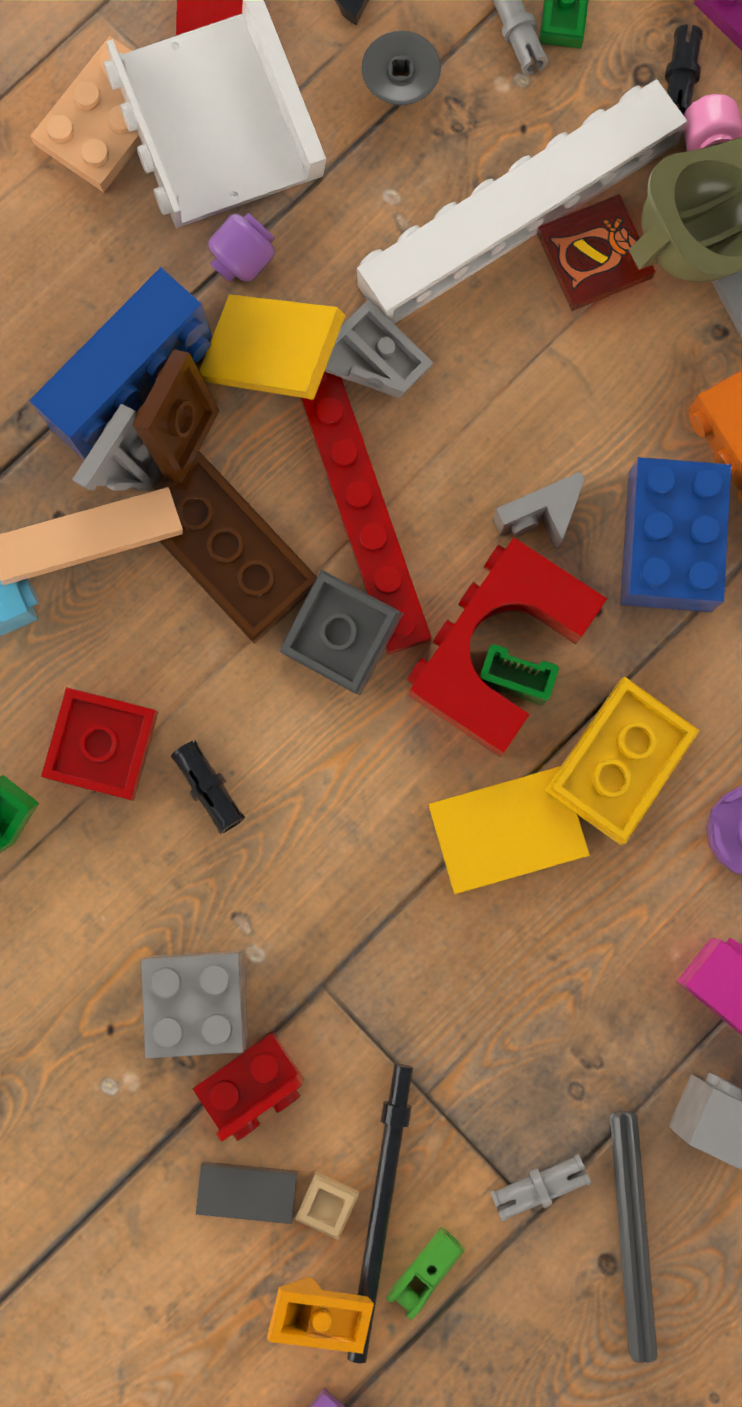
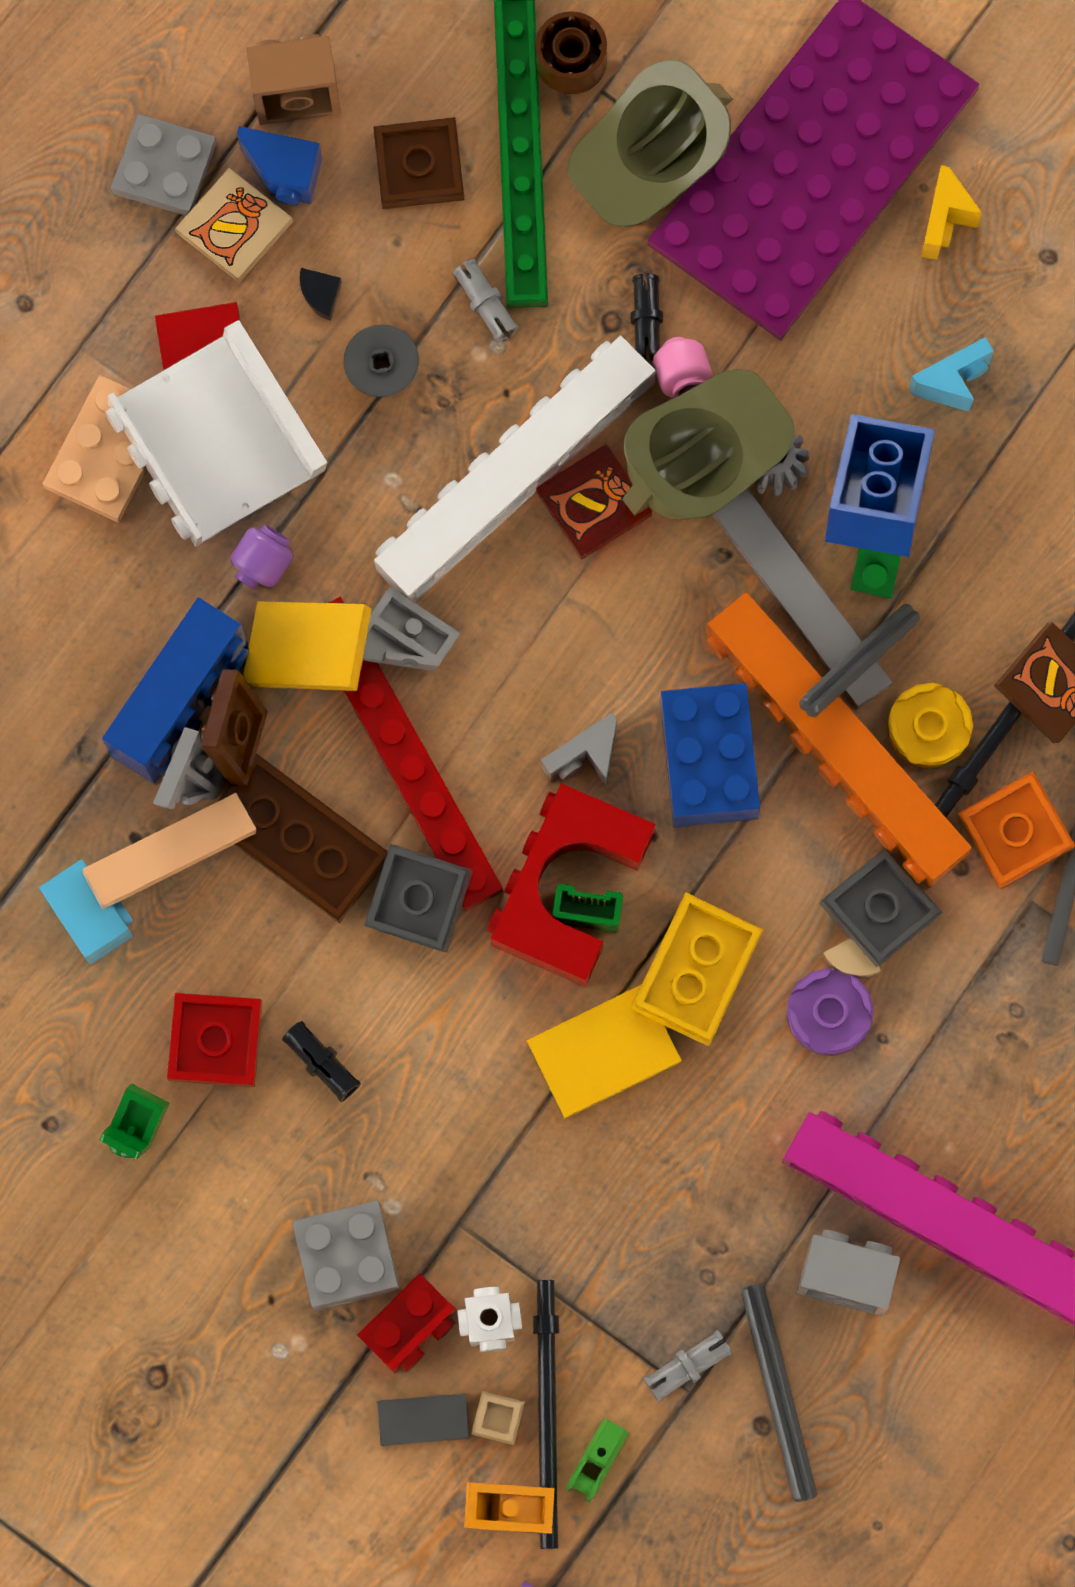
camera: 10 degrees left, 5 degrees down
(341, 1083) = (495, 1336): none -> white brick

